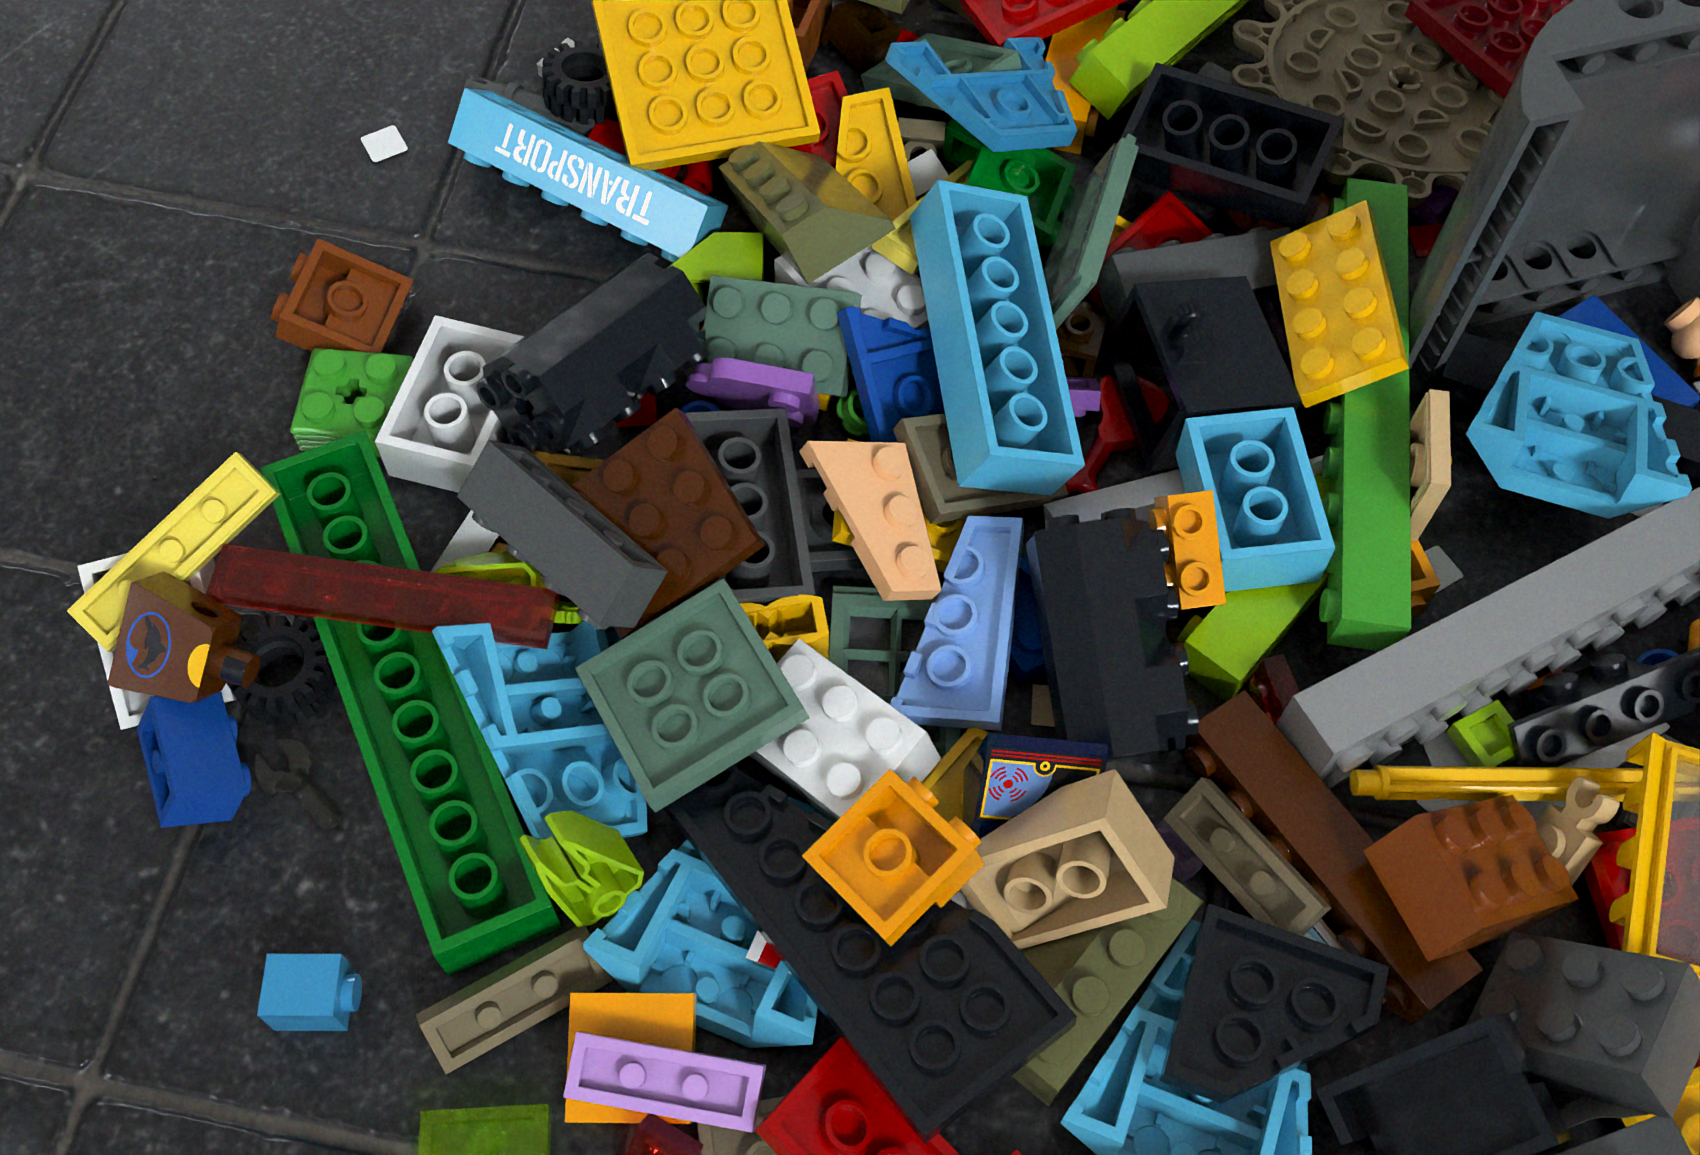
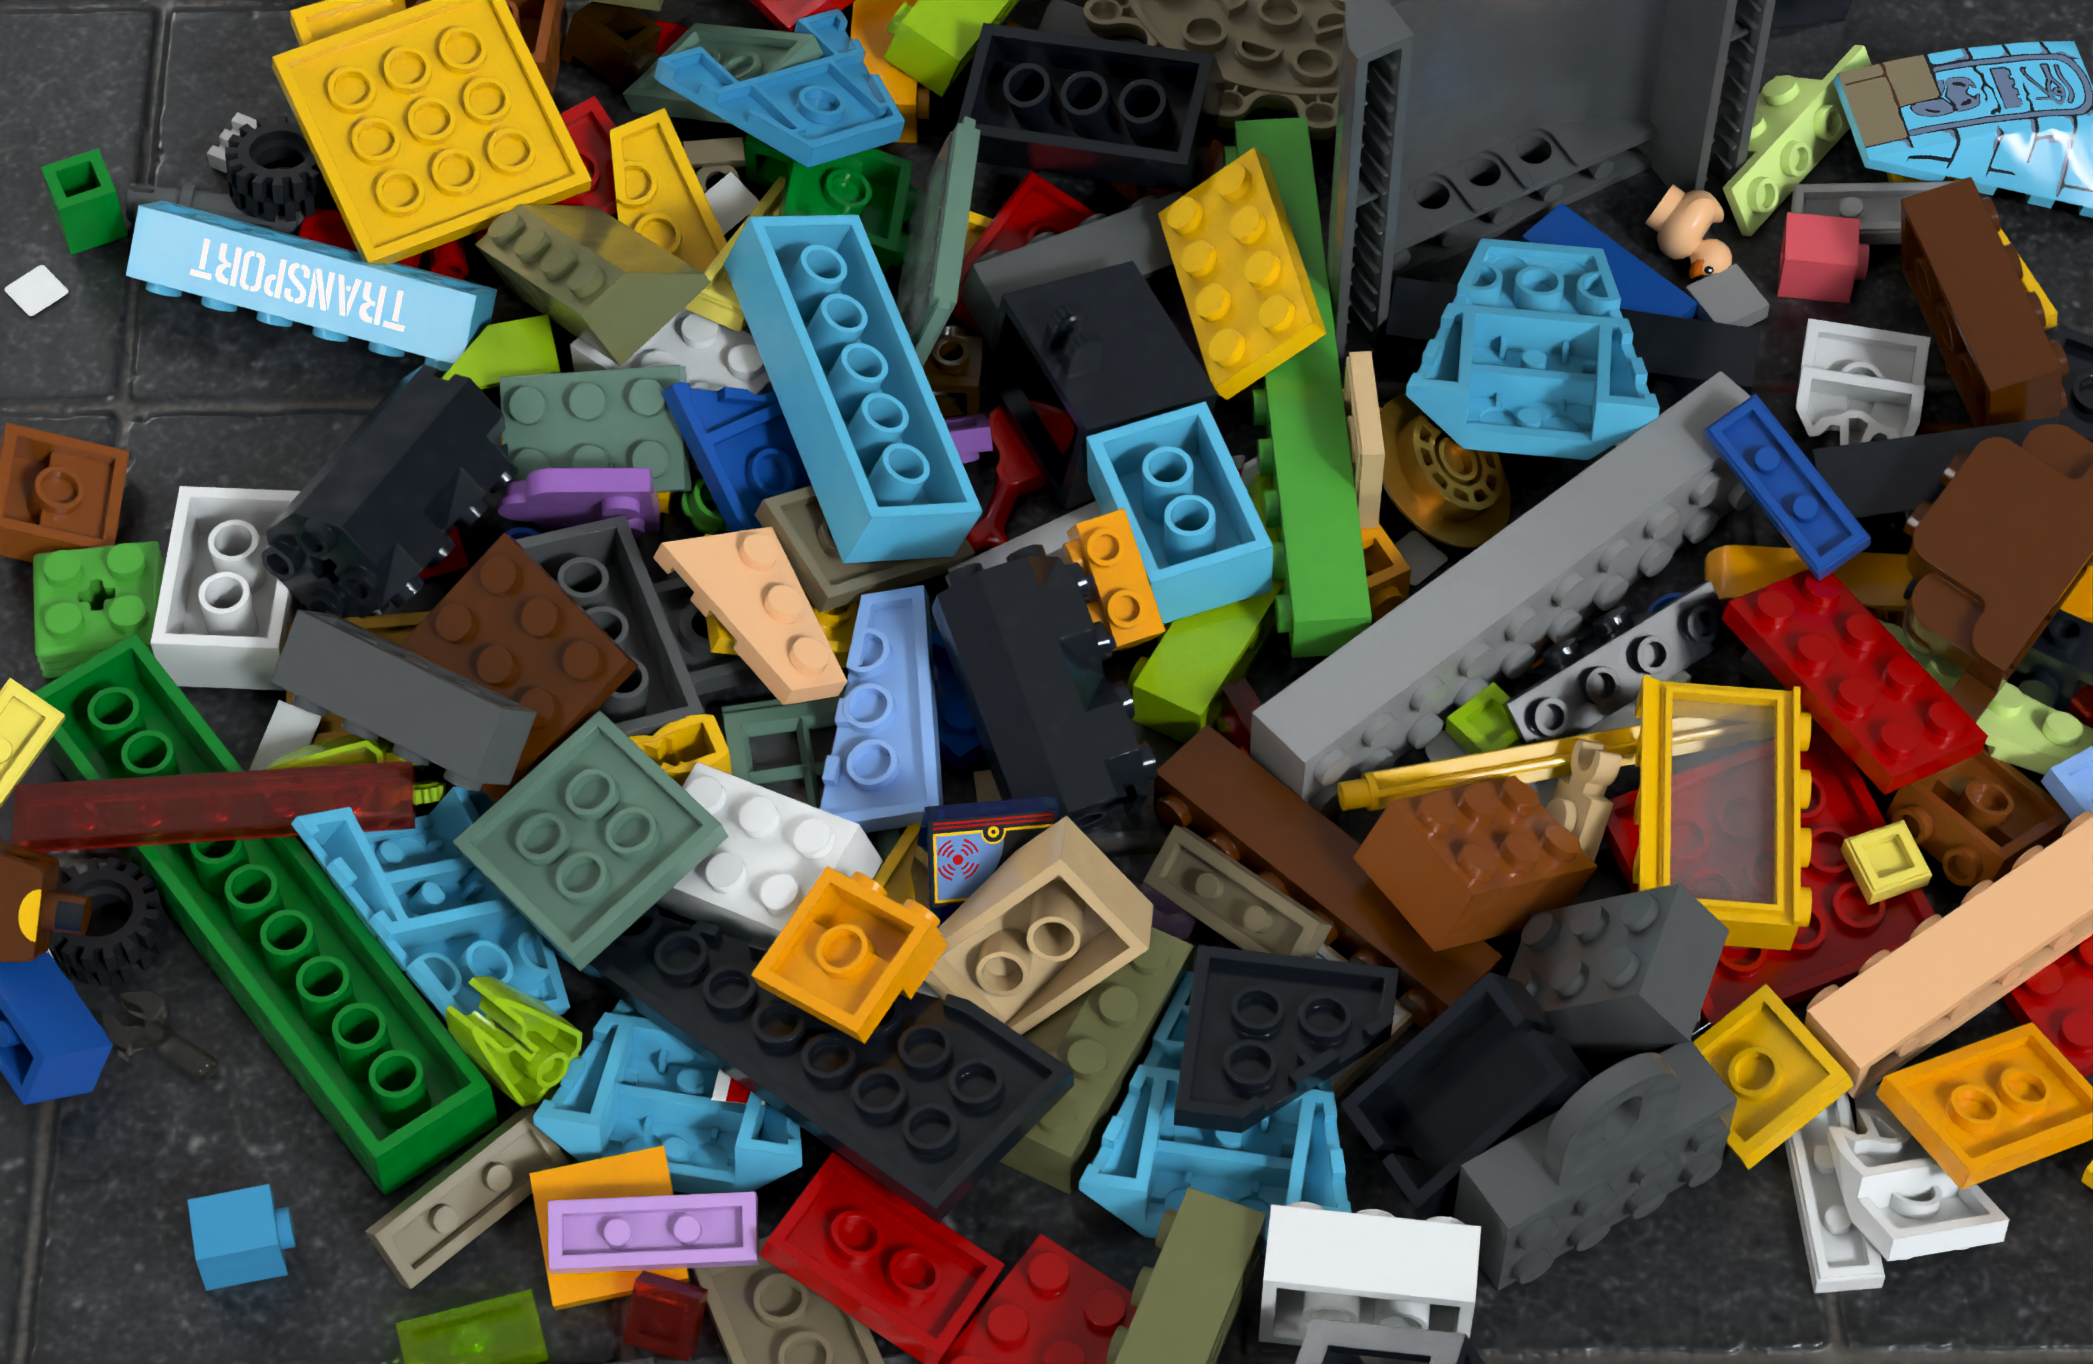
camera: 10 degrees left, 5 degrees down
(431, 80) = (84, 201): none -> green brick
(1476, 515) = (1437, 484): none -> pearl gold wheel

